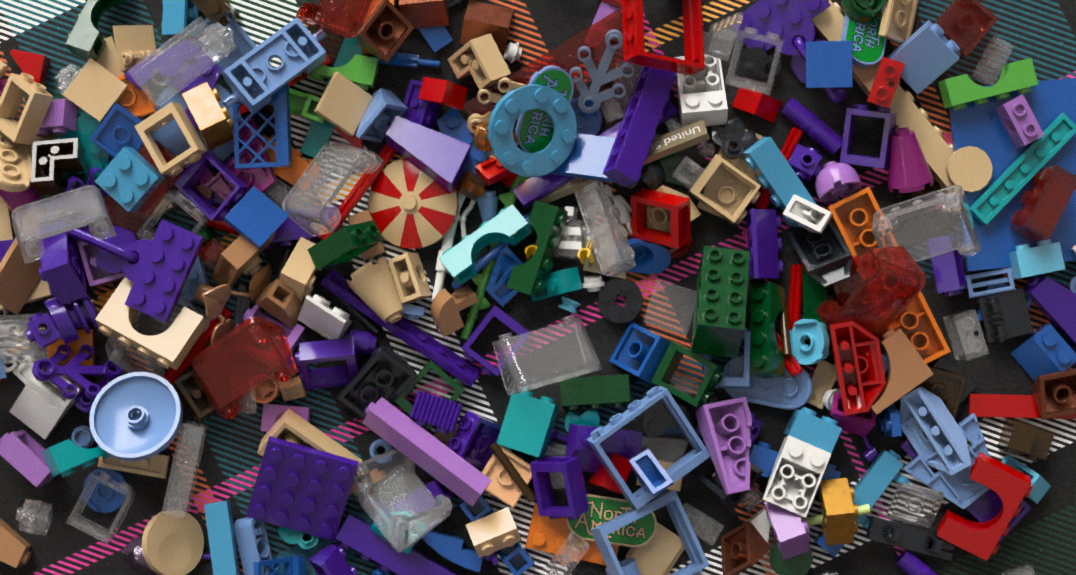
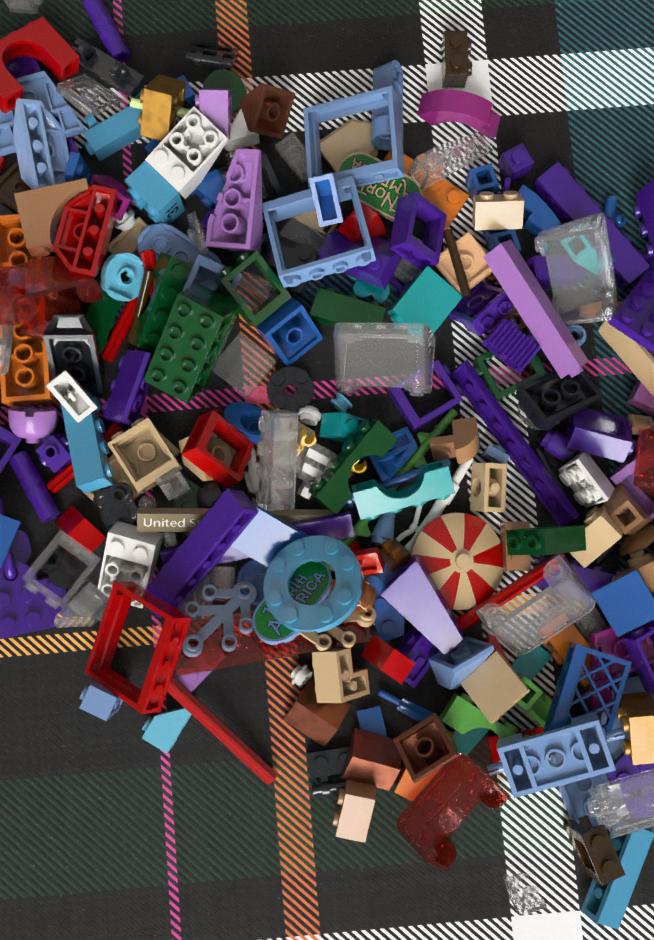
camera: 165 degrees left, 5 degrees down
(378, 290) = (525, 485): tan cone -> none
(760, 408) = (196, 233): none -> clear plate
(870, 453) = (111, 160): dark purple hand -> none

